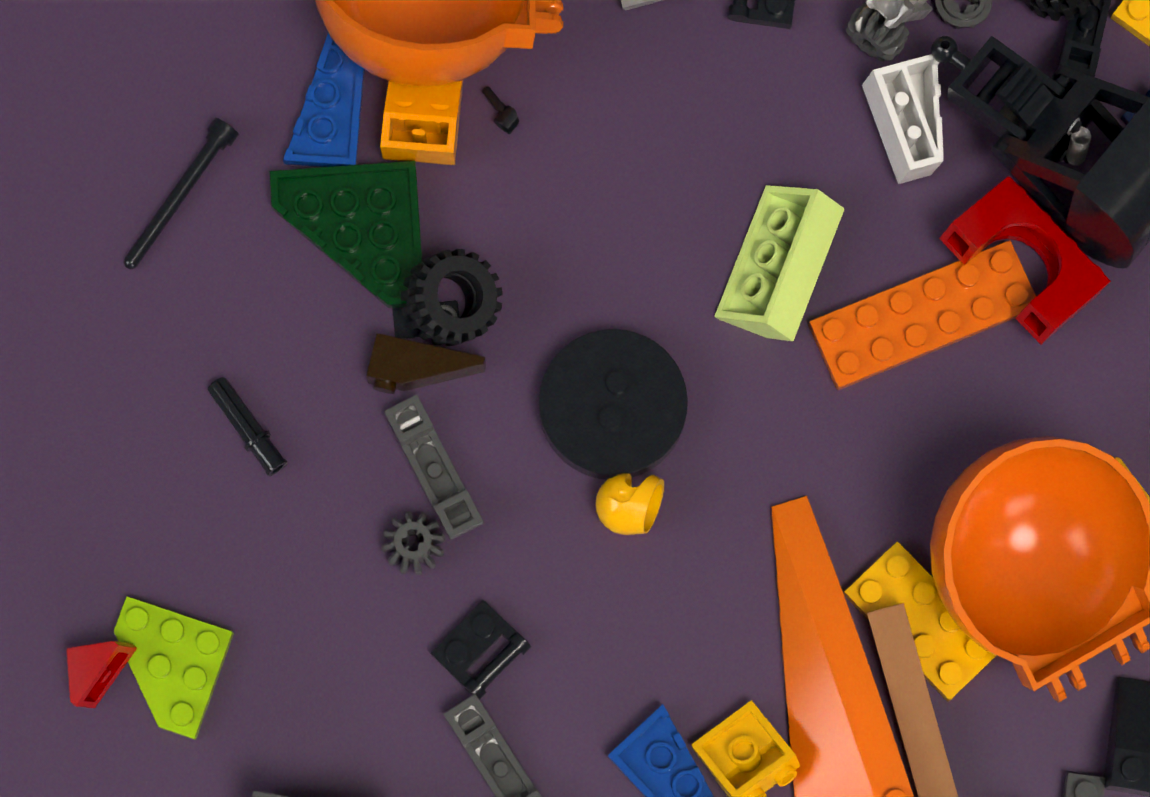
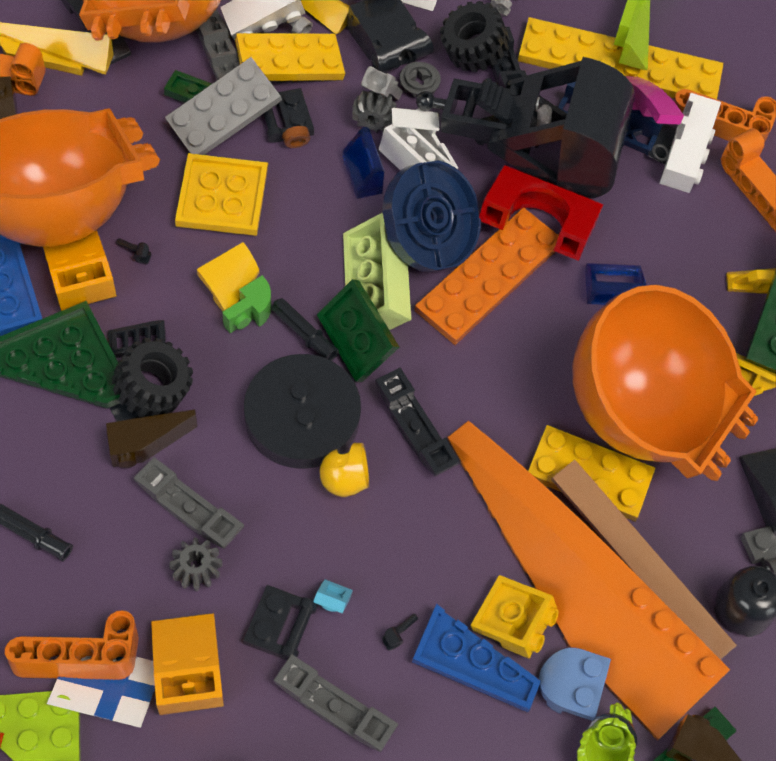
camera: 30 degrees left, 15 degrees down
(241, 588) = (31, 655): none -> orange beam
(264, 638) = (113, 700): none -> white sticker
(358, 652) = (186, 664): none -> light orange slope
(472, 224) = (144, 329): none -> black slope
(551, 645) = (333, 596): none -> medium azure plate
(597, 719) = (392, 636): none -> black hand
(599, 193) = (229, 274): none -> yellow slope
(616, 244) = (253, 304): none -> bright green brick
(636, 75) = (222, 194): none -> yellow plate
(660, 300) = (312, 337): none -> black axle
(720, 331) = (357, 330): none -> dark green plate
(740, 475) = (414, 423): none -> black slope
(763, 28) = (296, 136): none -> dark orange tile
(830, 103) = (364, 165): none -> clear blue tile
(909, 224) = (407, 209): none -> dark blue piece
(920, 69) = (415, 119): none -> white sticker
(1068, 404) = (601, 291): none -> clear blue tile

